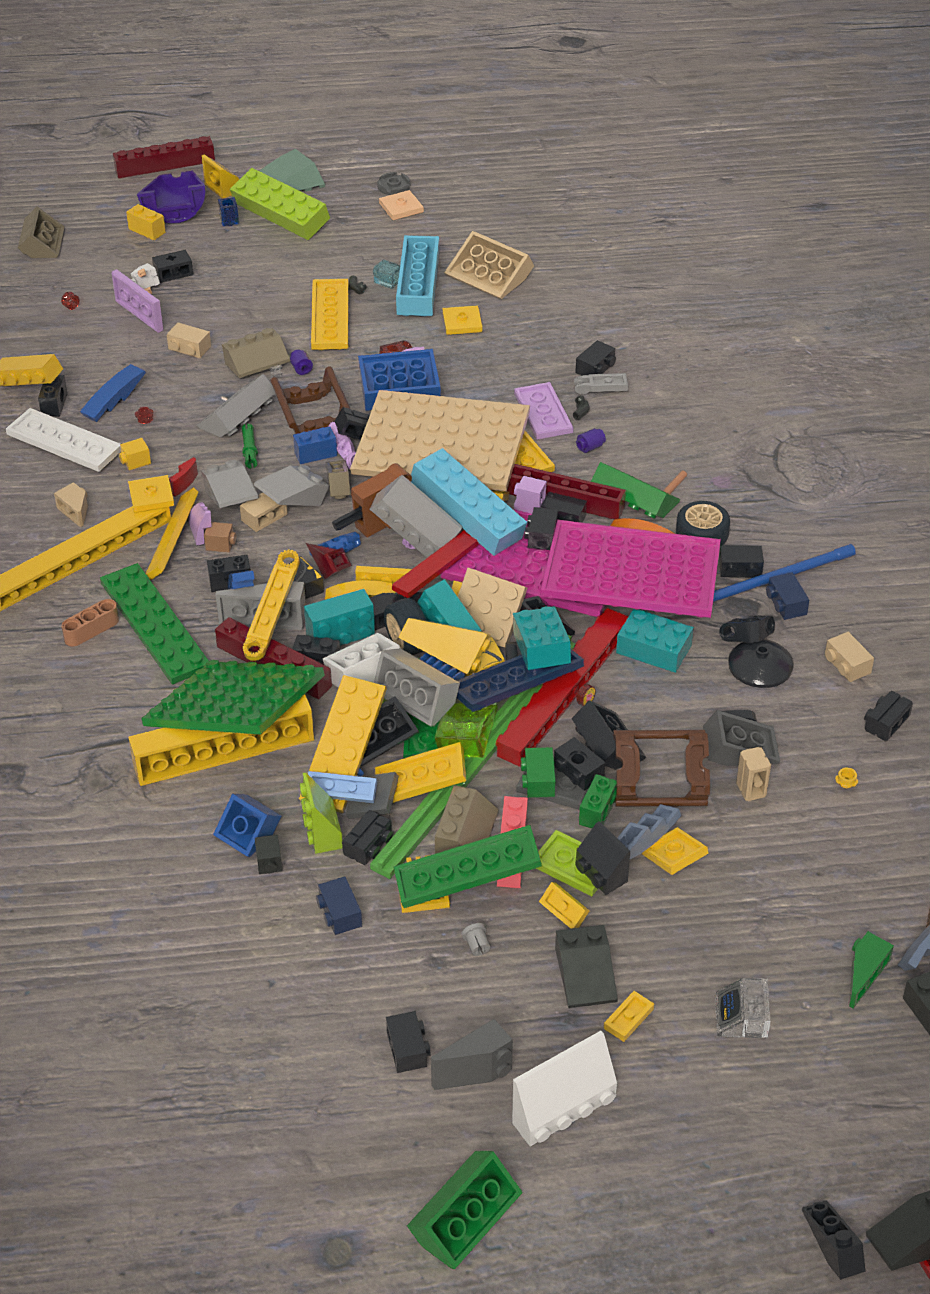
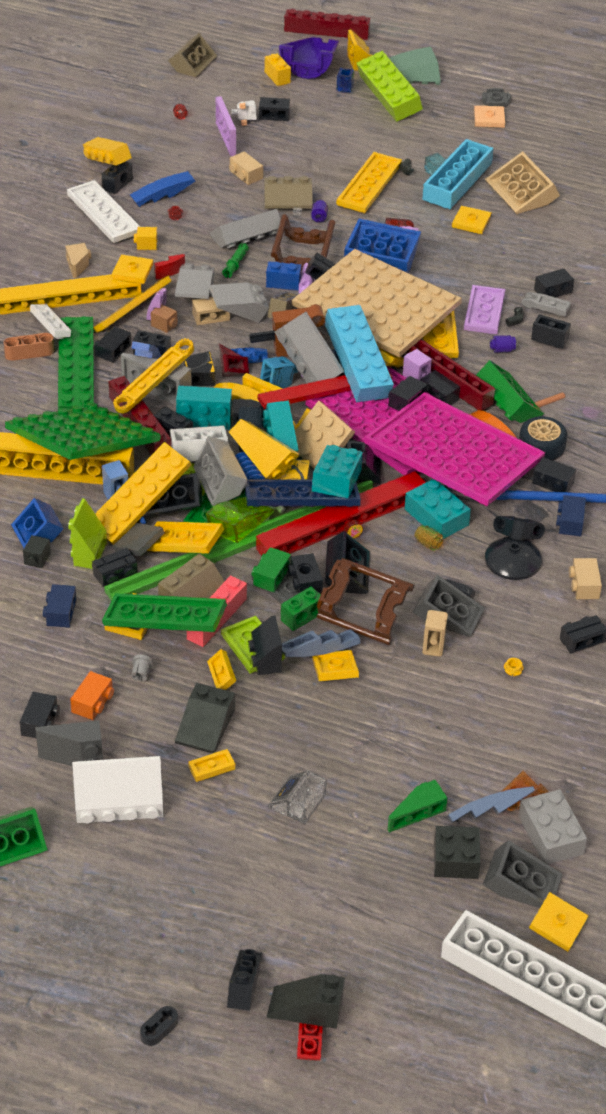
camera: 25 degrees right, 0 degrees up
(96, 584) = (50, 320): none -> white plate
(183, 586) = (112, 344): none -> black brick
(302, 740) = (113, 477): none -> medium blue brick
(346, 787) = (118, 524): light blue plate -> none
(388, 550) = (278, 371): none -> dark azure torso
(447, 993) = (92, 695): none -> orange brick
(630, 410) = (550, 331): none -> black brick
(667, 674) = (429, 537): none -> clear yellow brick

